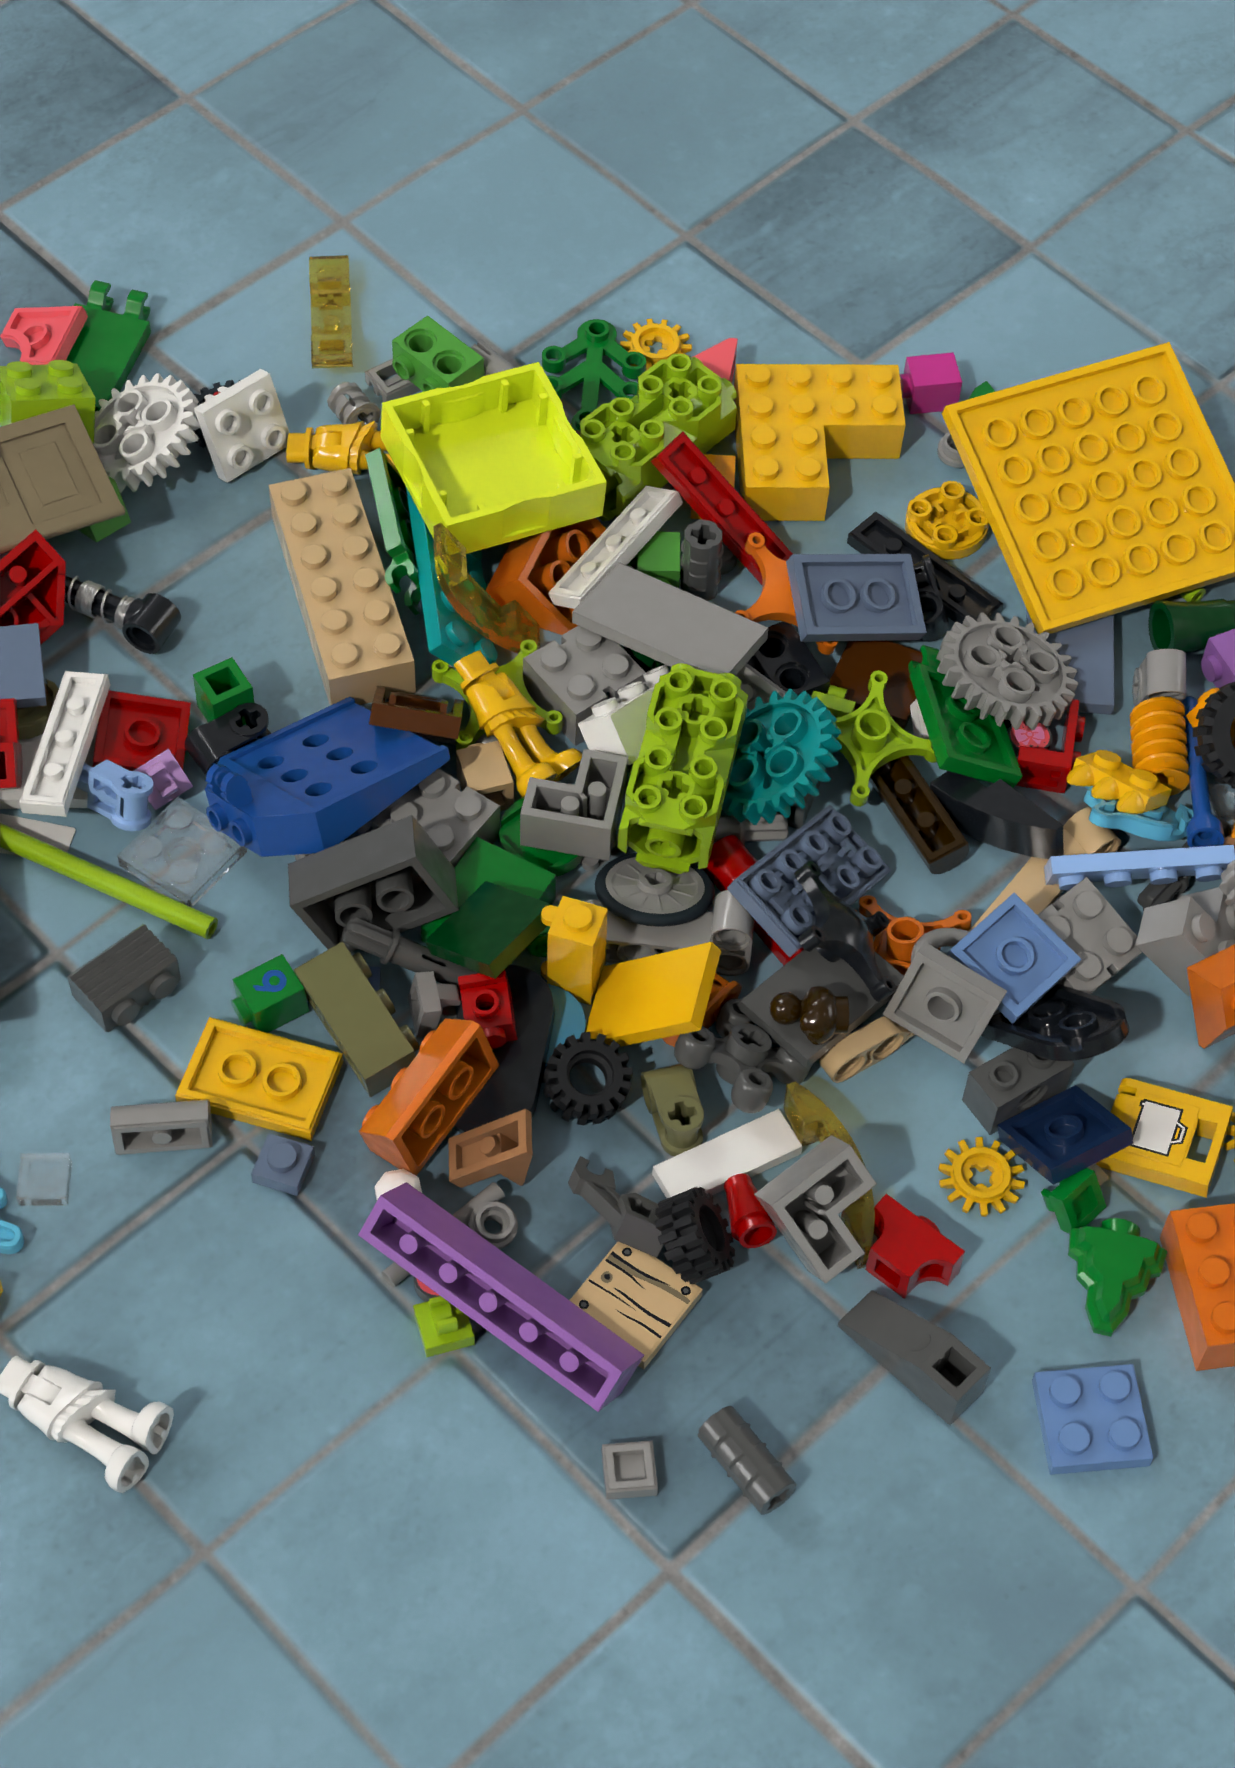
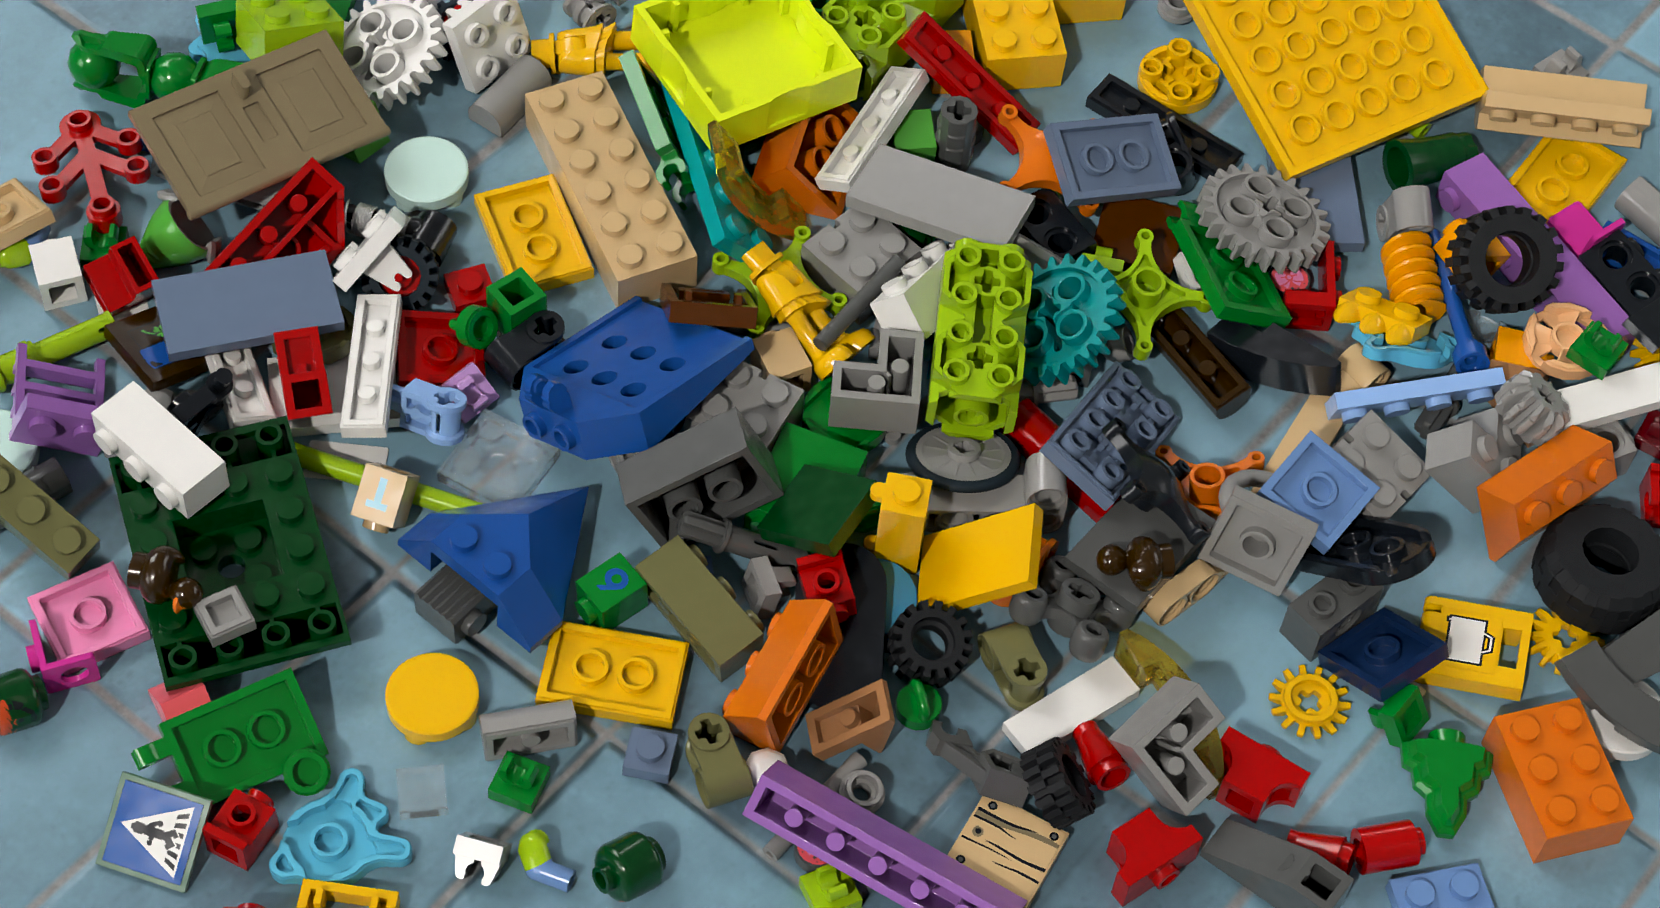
camera: 10 degrees left, 0 degrees up
(57, 876) = (384, 497): none -> tan brick
(70, 1084) = (432, 698): none -> yellow tile
(99, 1247) = (473, 847): none -> tile
(102, 641) = (389, 262): none -> plate
(144, 1179) = (519, 782): none -> green tile
(148, 1264) = (539, 864): none -> arm
(161, 558) = (426, 174): none -> light aqua tile
(172, 948) = (512, 553): none -> blue wedge
(178, 713) = (475, 326): none -> green tile
(179, 673) = (467, 286): none -> red plate
(238, 1277) = (628, 866): none -> dark green head
(249, 494) = (504, 100): none -> light grey brick
(260, 626) = (534, 231): none -> yellow tile
(348, 1181) = (716, 761): none -> olive piece
(567, 724) = (858, 303): none -> dark grey bar
(568, 1140) = (918, 705): none -> green tile
(783, 1320) = (1149, 854): none -> red brick
(838, 789) = (1121, 349): none -> light grey hinge
(974, 1333) = (1330, 847): none -> red cone
(1038, 1337) = (1387, 846): none -> red brick

